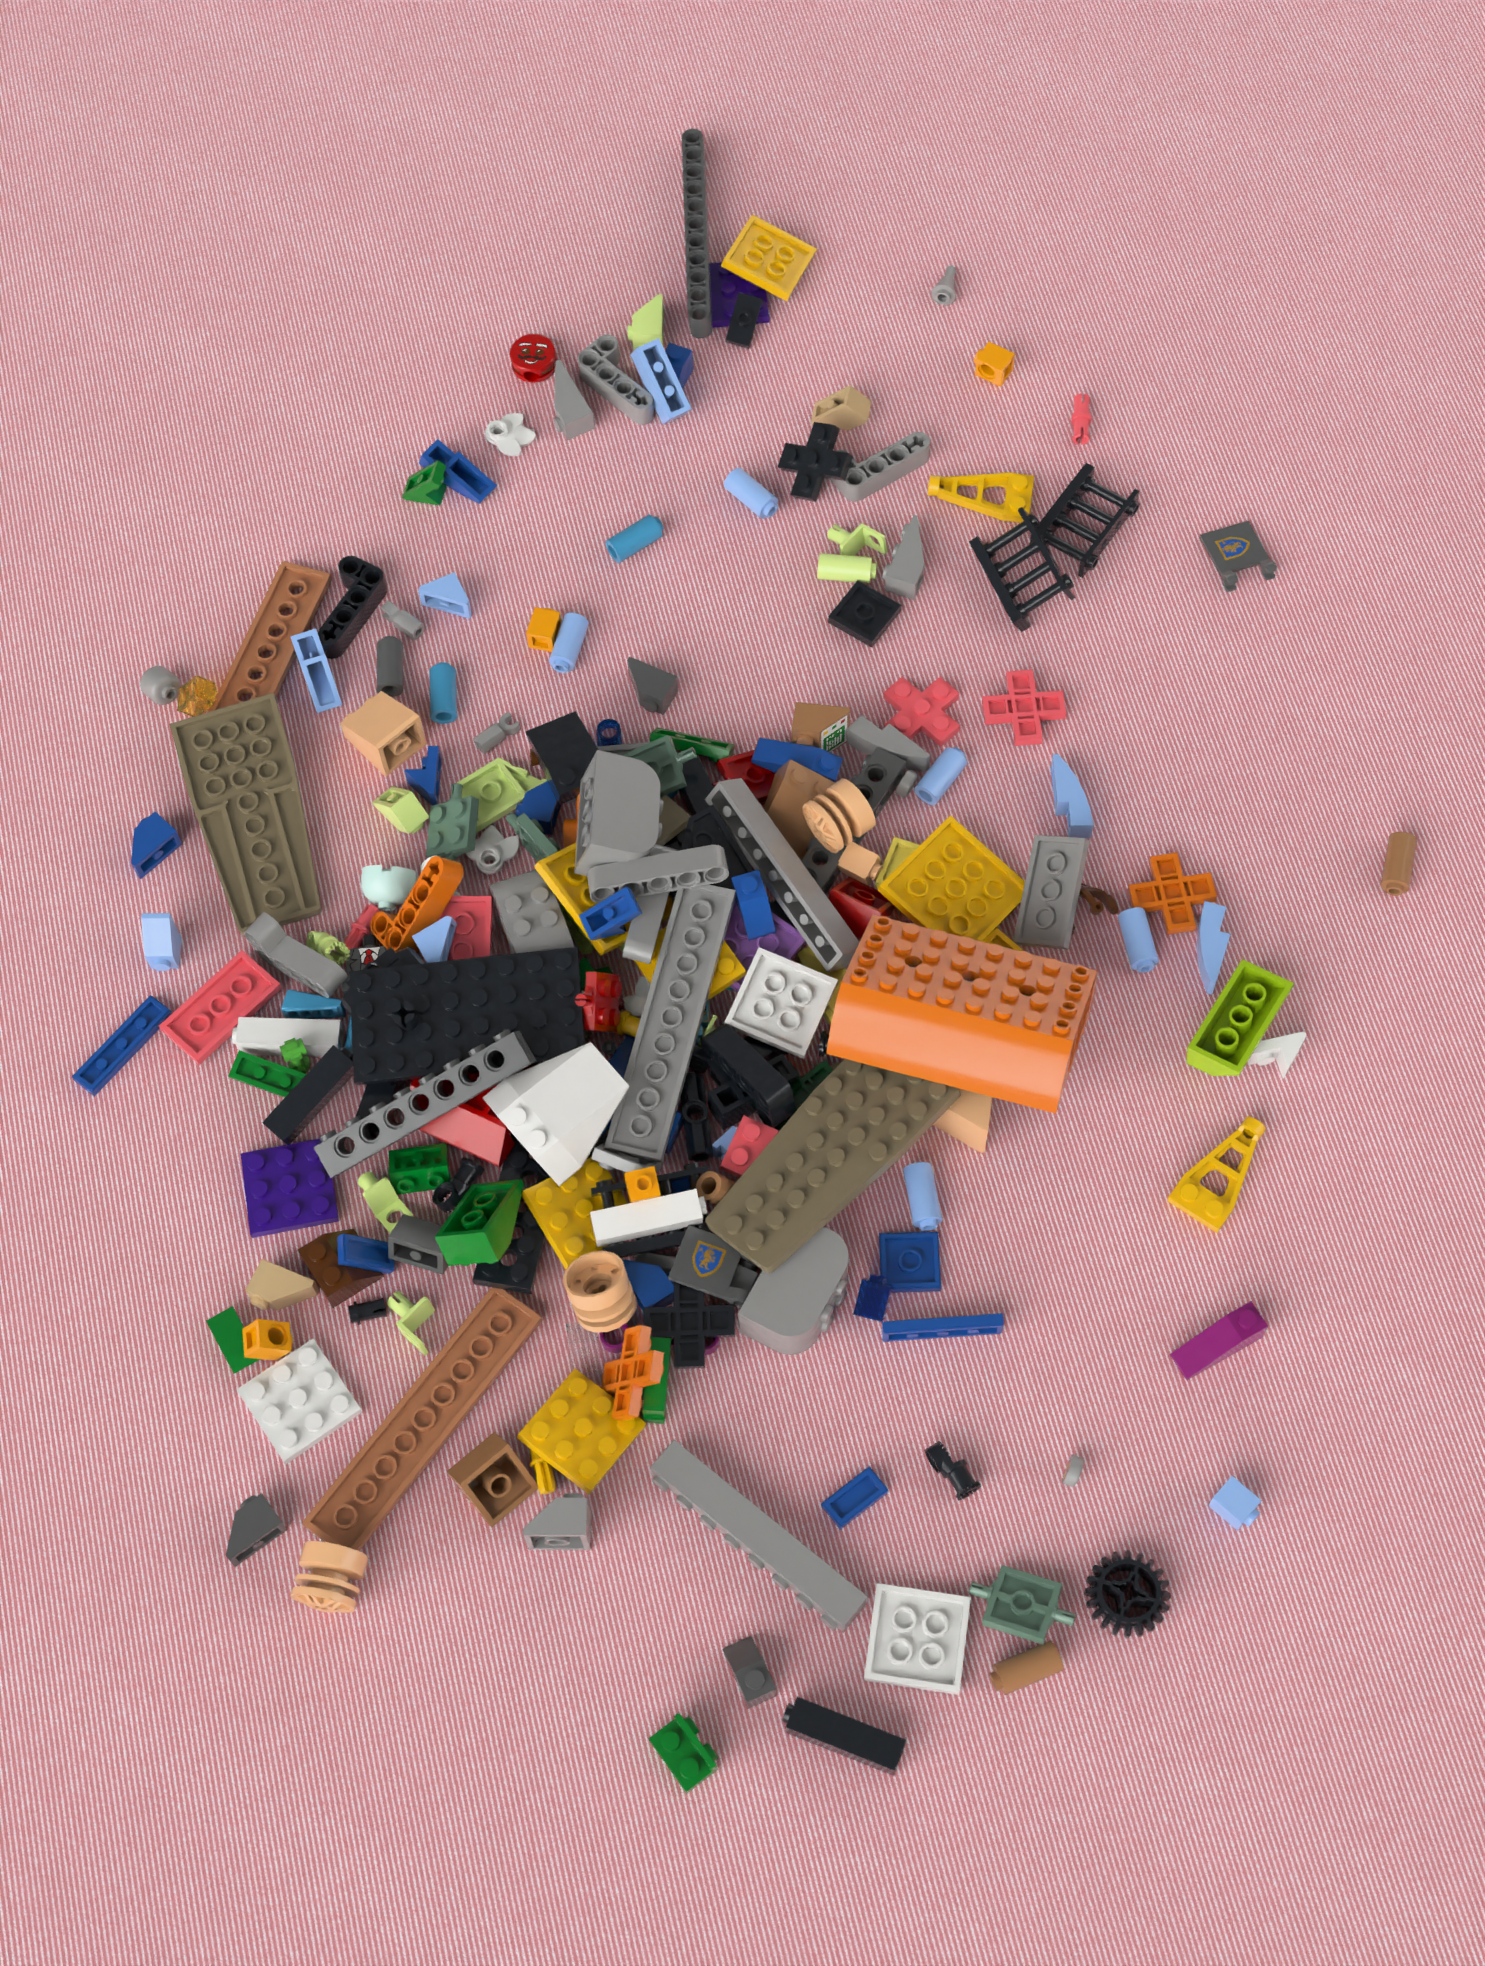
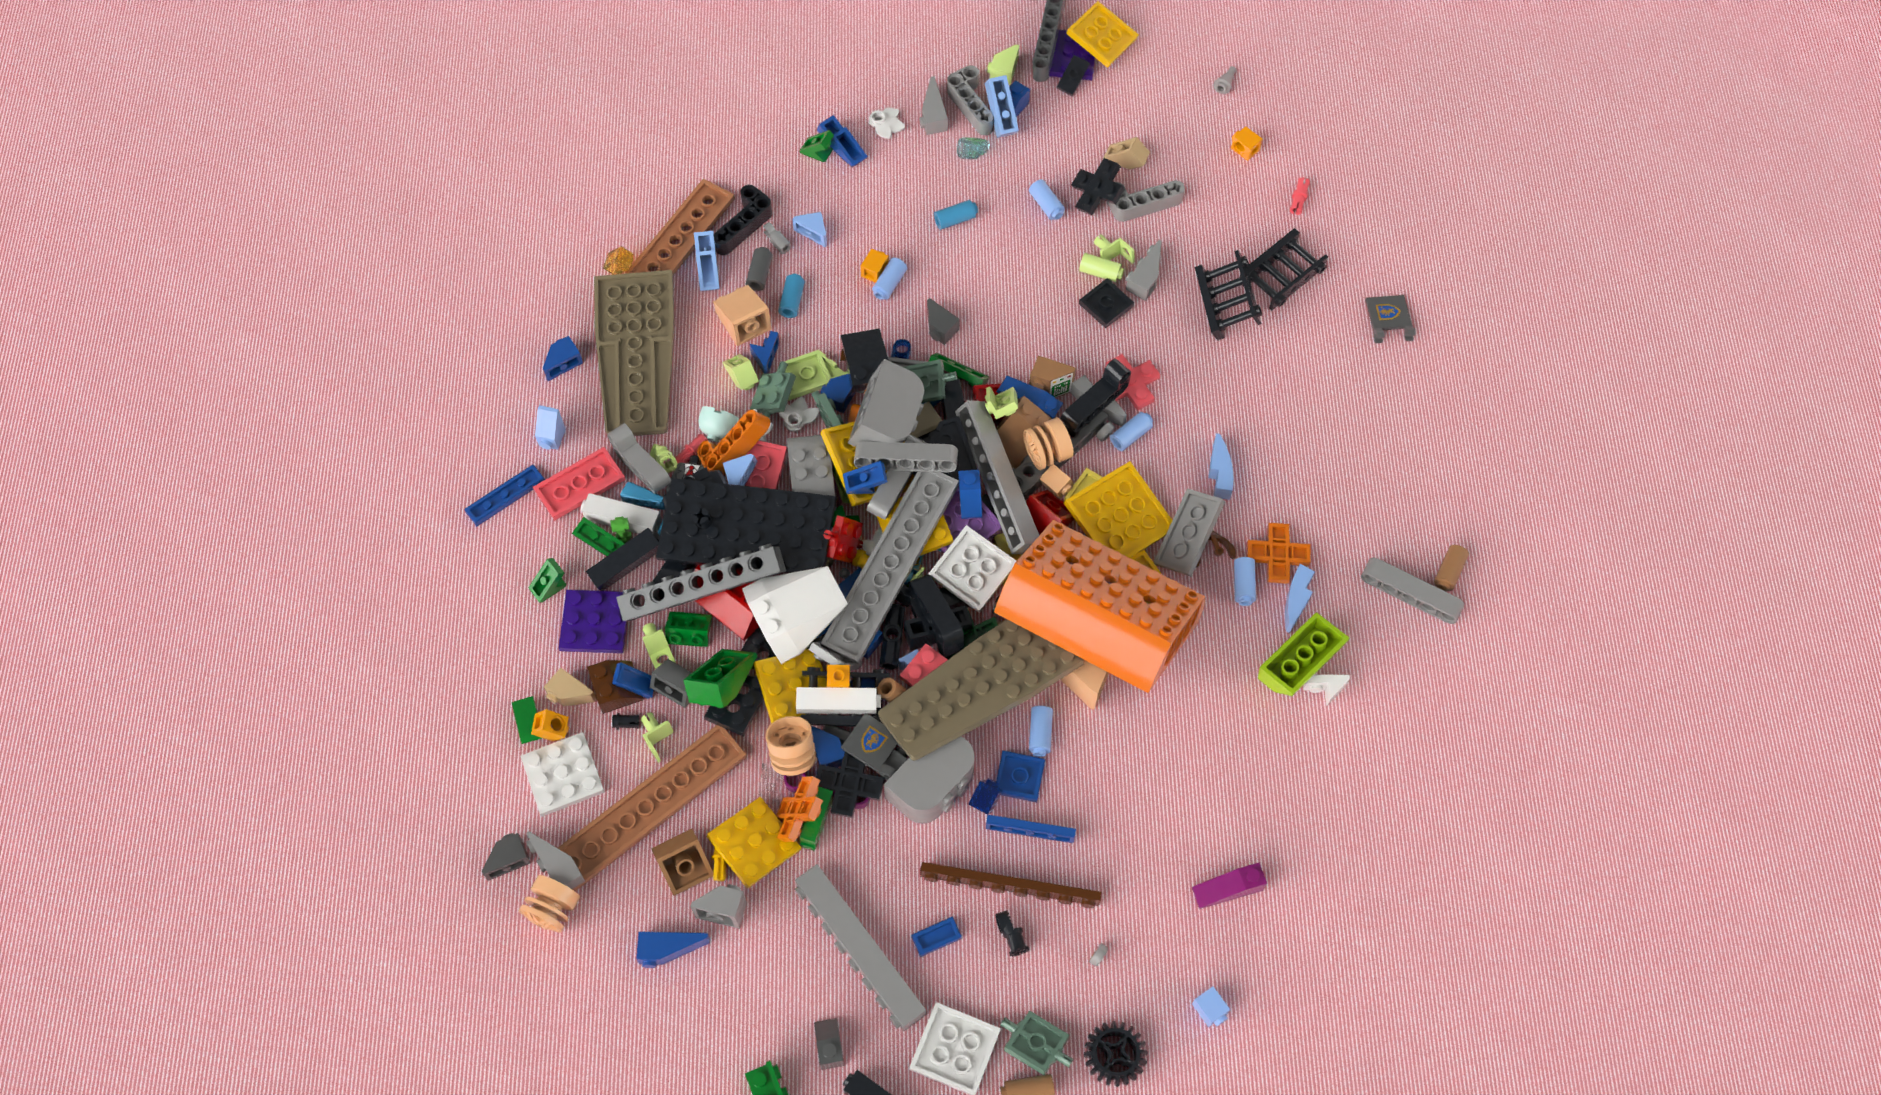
camera: 10 degrees right, 0 degrees up
(160, 685) = (594, 247): light grey head -> none
(212, 1147) = (547, 581): none -> green slope
(323, 1519) = (556, 862): none -> light grey slope
(458, 1185) = (711, 647): black connector -> none
(496, 733) = (822, 332): light grey bar -> none
(496, 1598) = (663, 947): none -> blue slope
(533, 358) = (916, 71): red head -> none
(633, 444) = (971, 147): none -> clear light blue rock
(764, 776) = (1001, 404): none -> yellowish green bracket
(888, 739) = (1098, 397): none -> black beam
(922, 1408) = (1002, 883): none -> reddish brown plate
(1017, 488) = (1239, 241): yellow plate -> none
(1023, 707) = (1204, 395): coral plate -> none
(1201, 1202) = (1243, 783): yellow plate -> none
(1356, 903) = (1412, 590): none -> light grey beam

